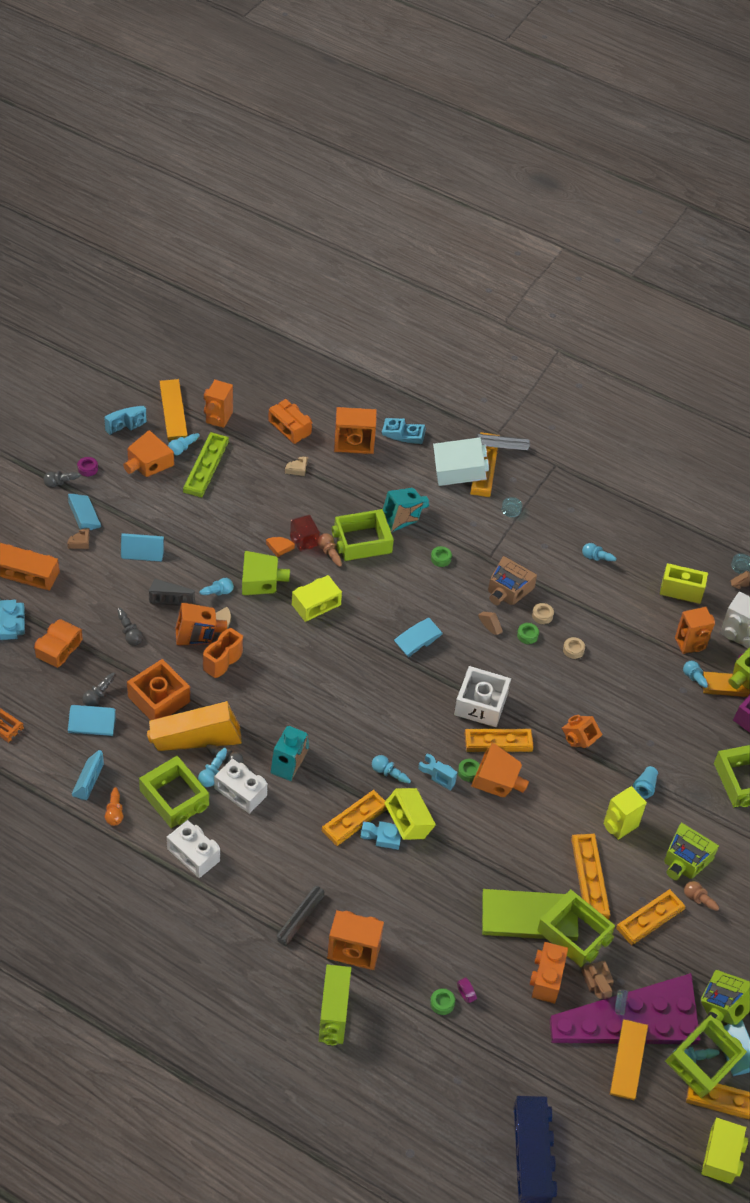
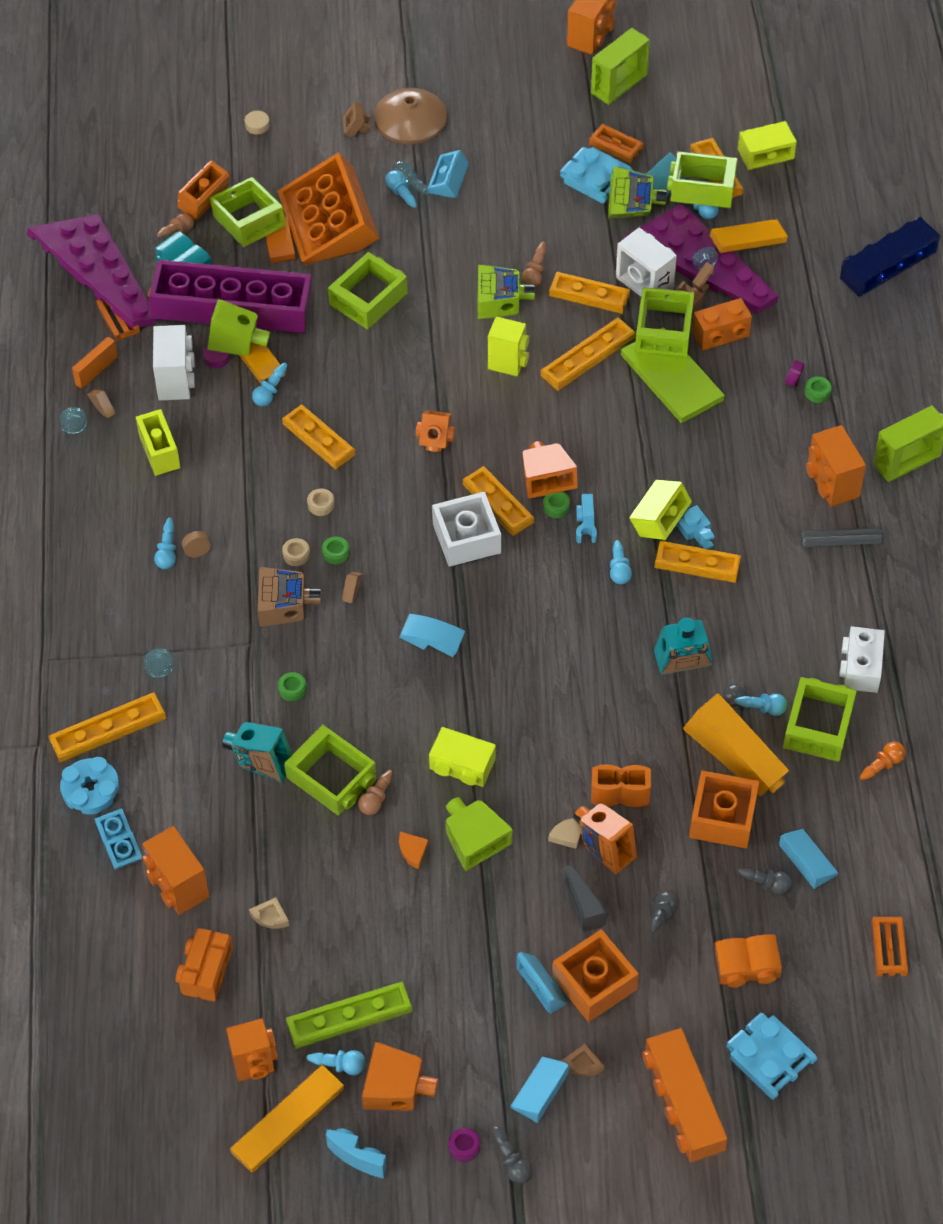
camera: 120 degrees left, 5 degrees up
(88, 776) = (872, 809): medium azure slope -> none
(118, 564) = (595, 975): none -> orange brick
(220, 587) = (519, 865): medium azure bar -> none
(241, 785) = (758, 665): white brick -> none
(304, 532) = (377, 829): clear red brick -> none
(449, 428) = (85, 771): none -> medium azure plate
(460, 461) = (135, 739): light aqua brick -> none
(504, 442) = (64, 720): axle -> none
(586, 565) = (196, 544): none -> medium nougat tile
(631, 677) = (318, 436): none -> light orange tile
(641, 953) = (645, 263): none -> white brick
(646, 782) = (445, 359): medium azure cone -> none
(694, 630) = (222, 398): orange brick -> none

